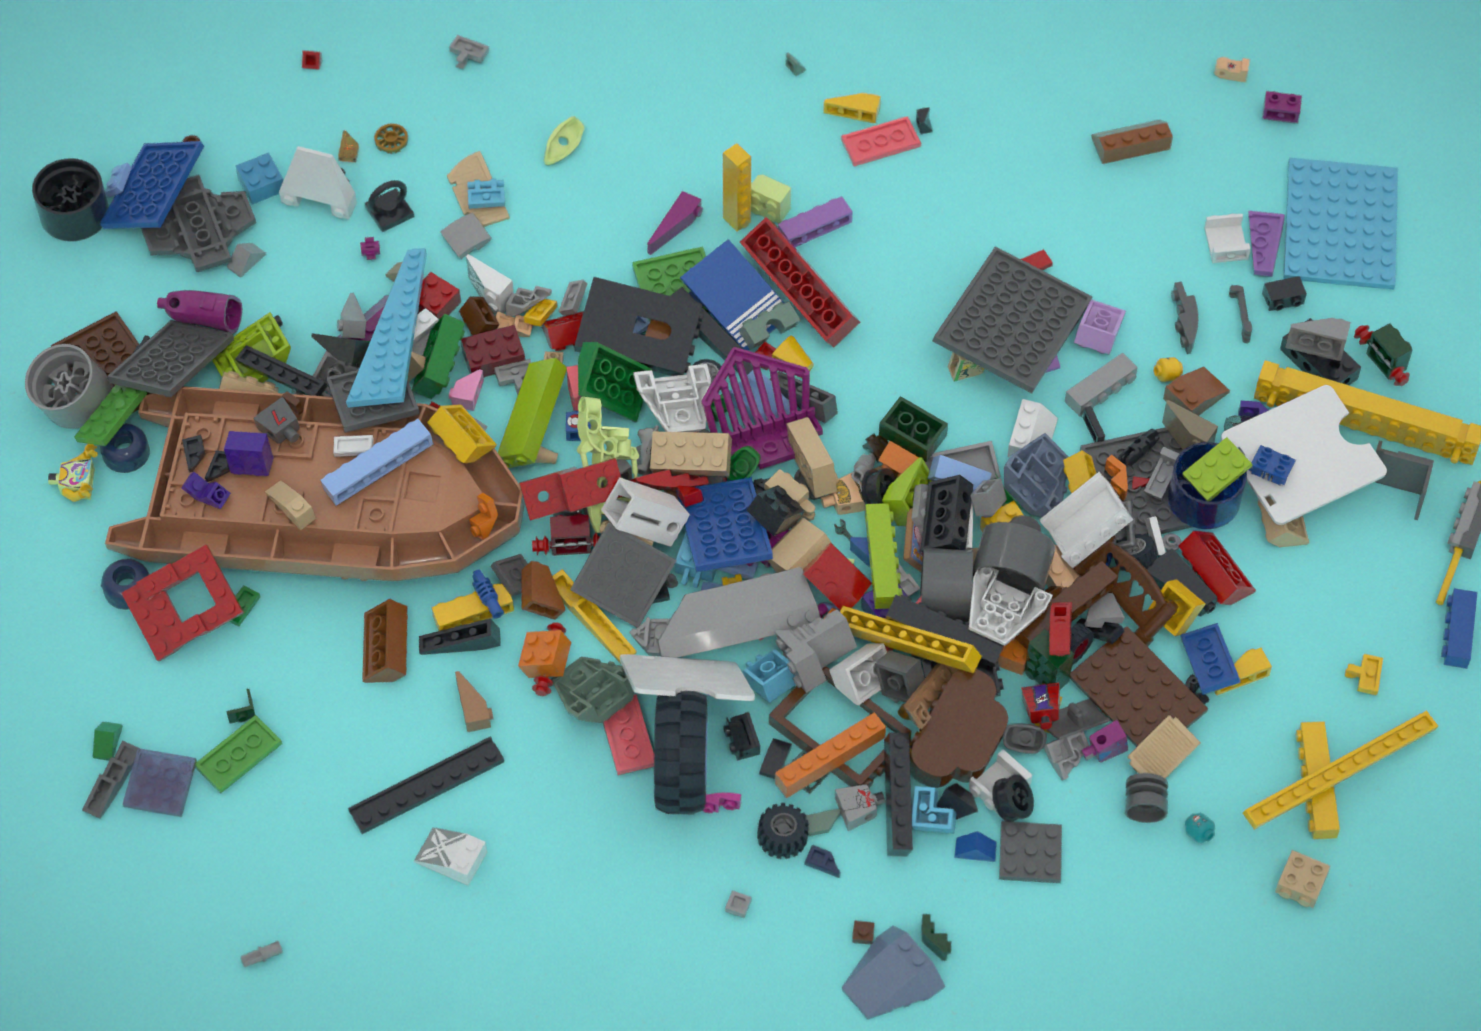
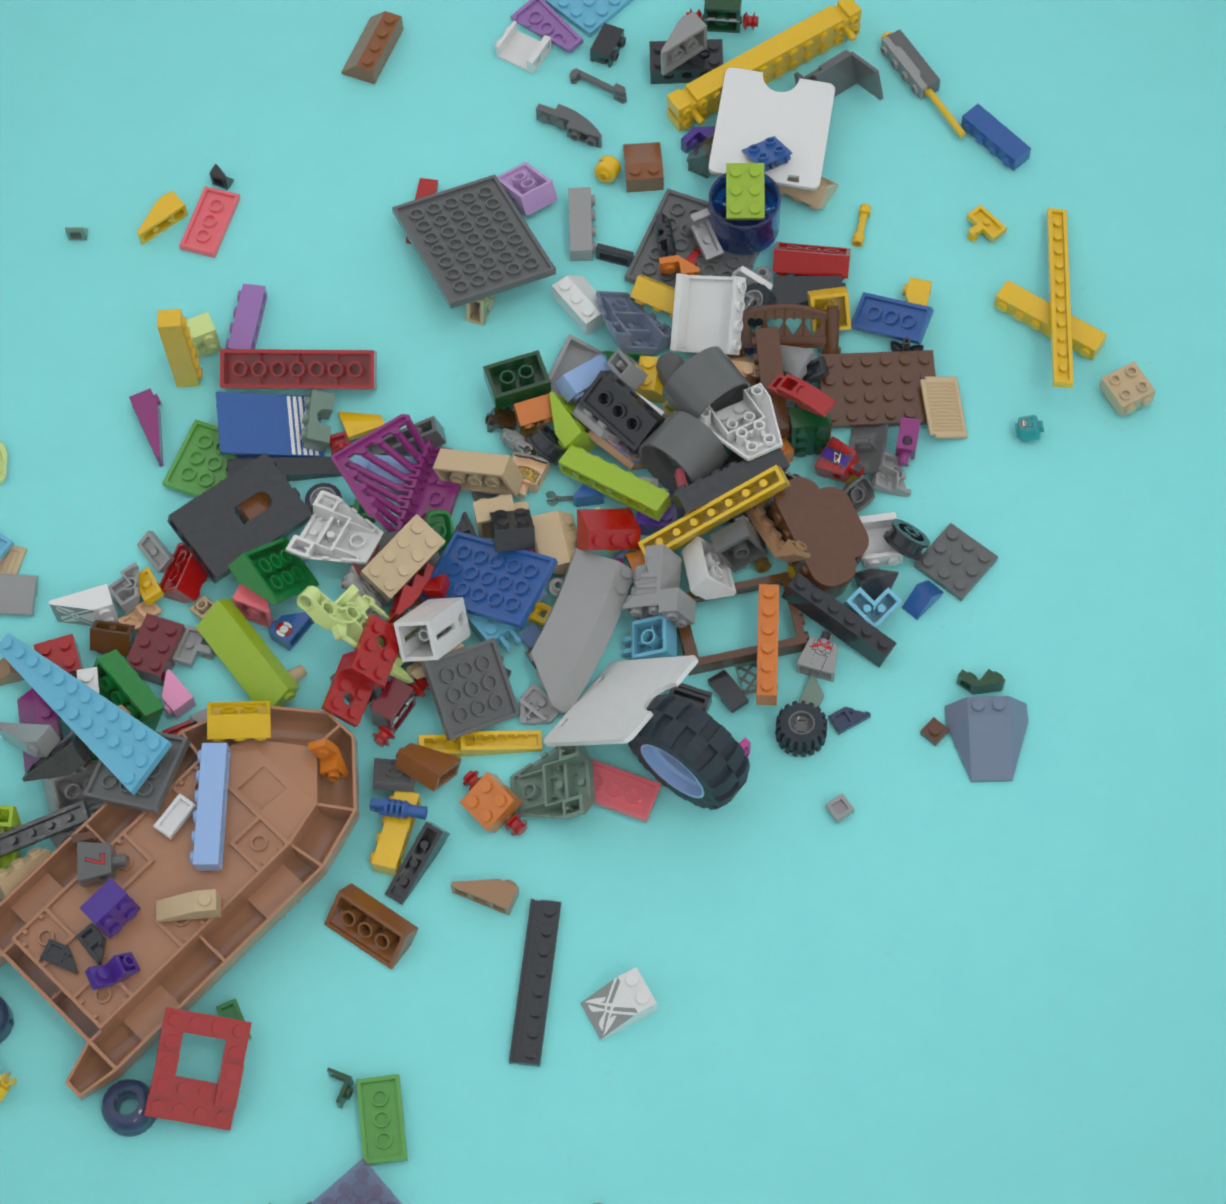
camera: 50 degrees left, 5 degrees up
(1146, 797) = (978, 445): dark grey wheel -> none
(1186, 426) = (682, 190): dark tan slope -> none
(1298, 578) = (858, 237): none -> yellow bar

